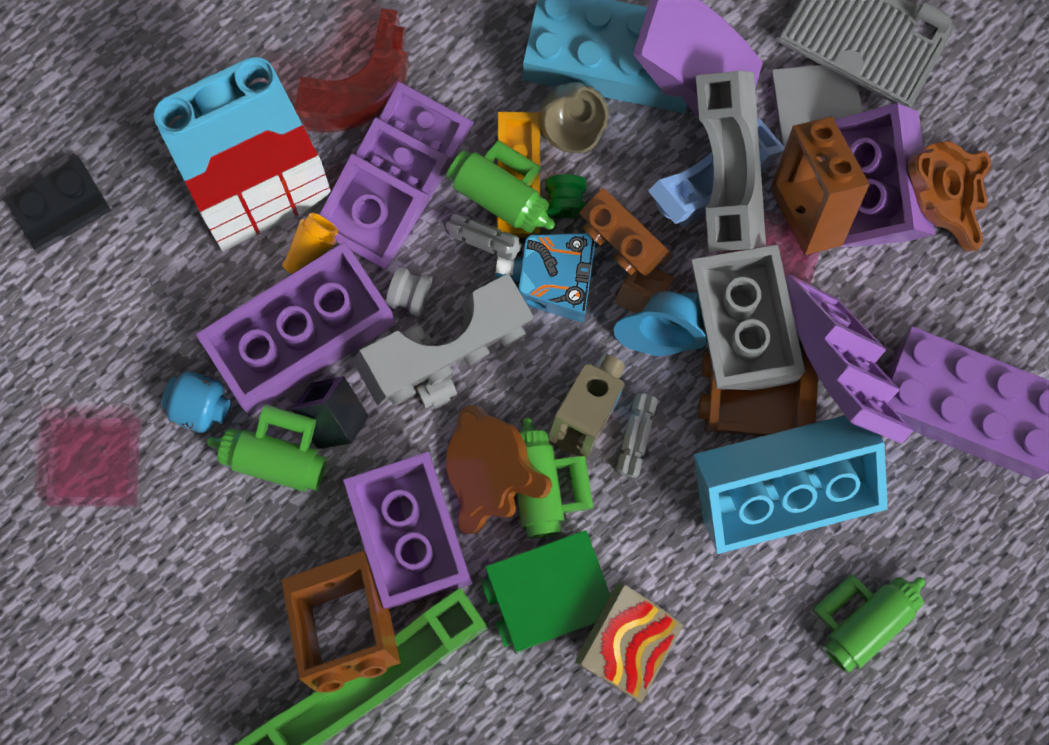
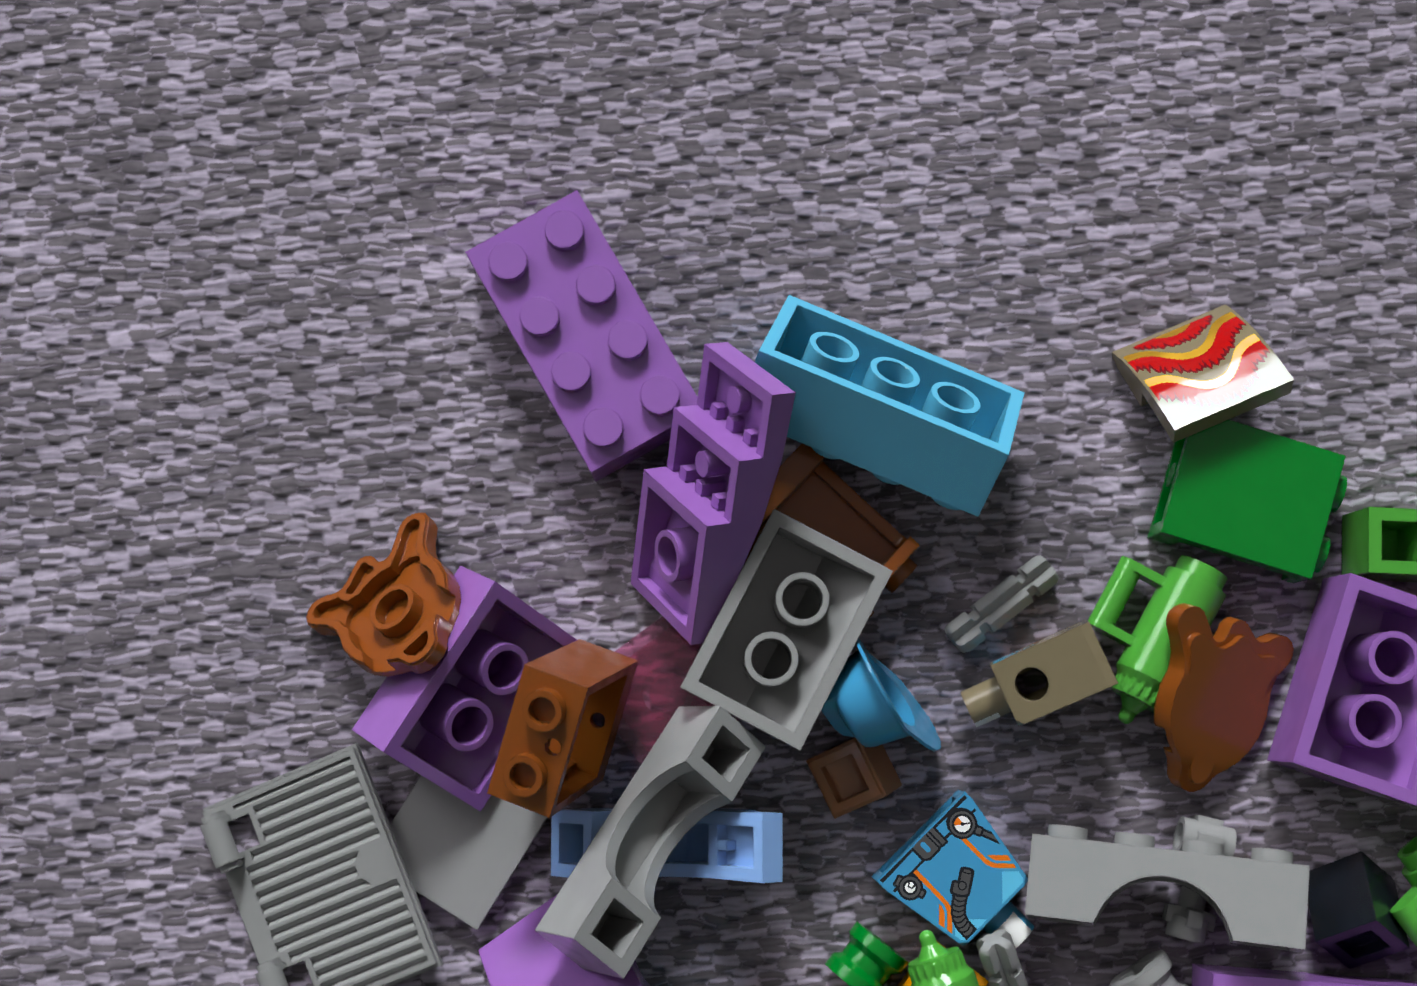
camera: 140 degrees left, 5 degrees up
(634, 243) = (841, 853): dark orange plate -> none
(872, 623) = (904, 190): bright green piece -> none

